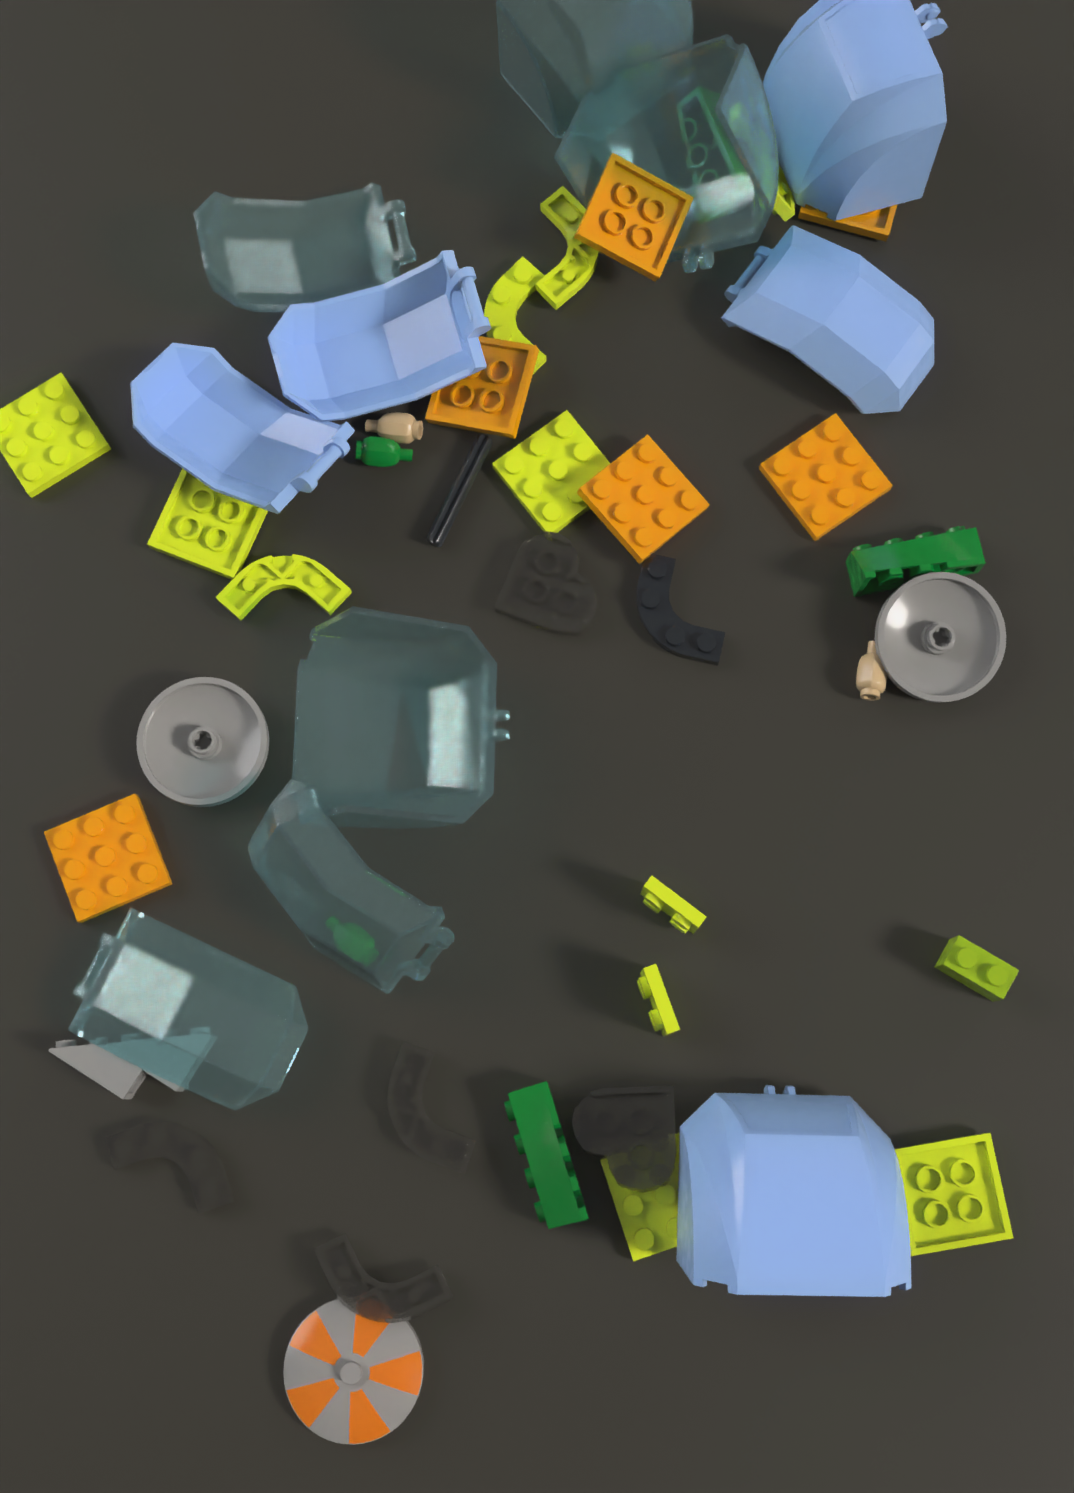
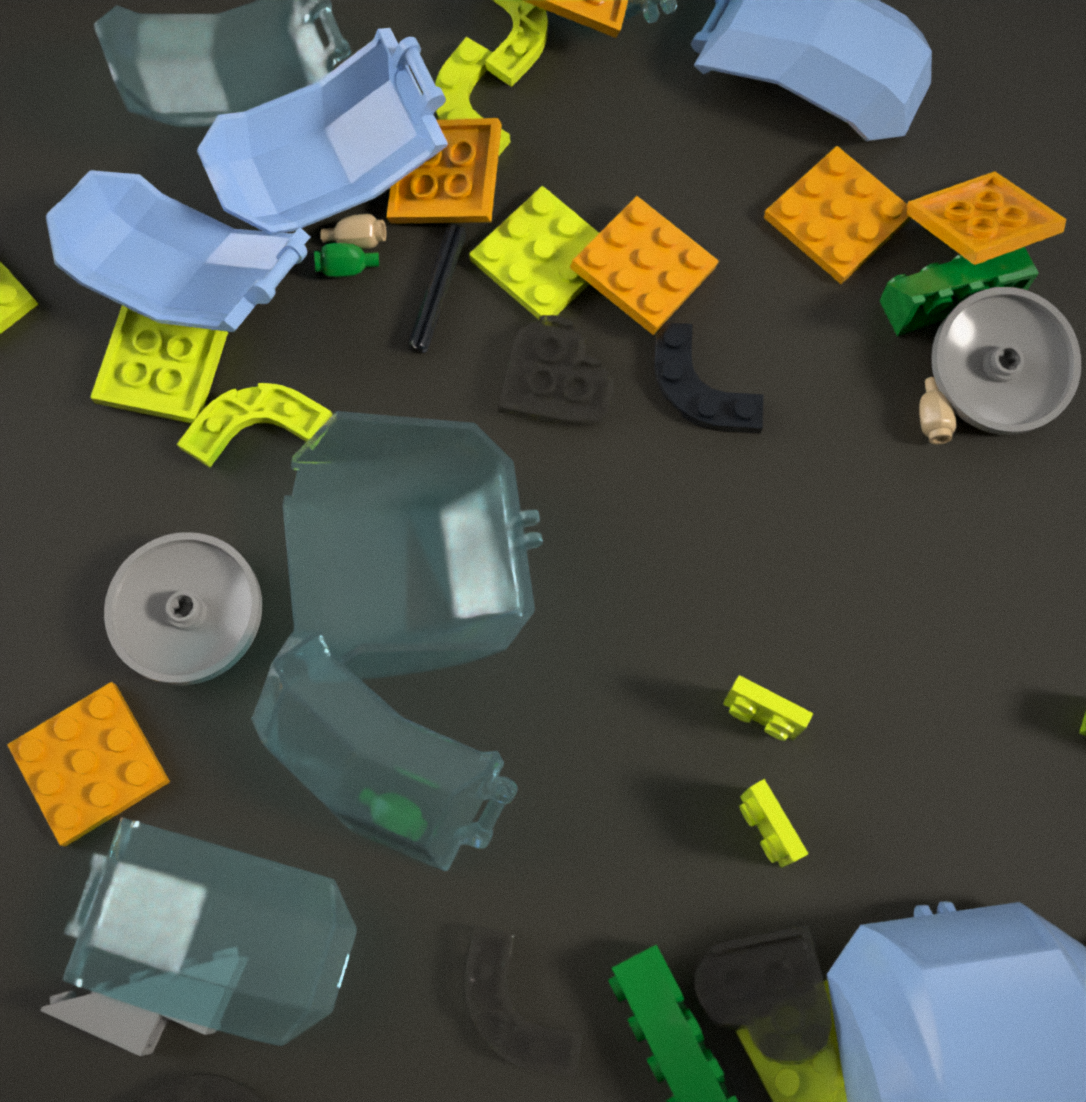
camera: 10 degrees left, 5 degrees down
(949, 504) = (985, 217): none -> light orange plate

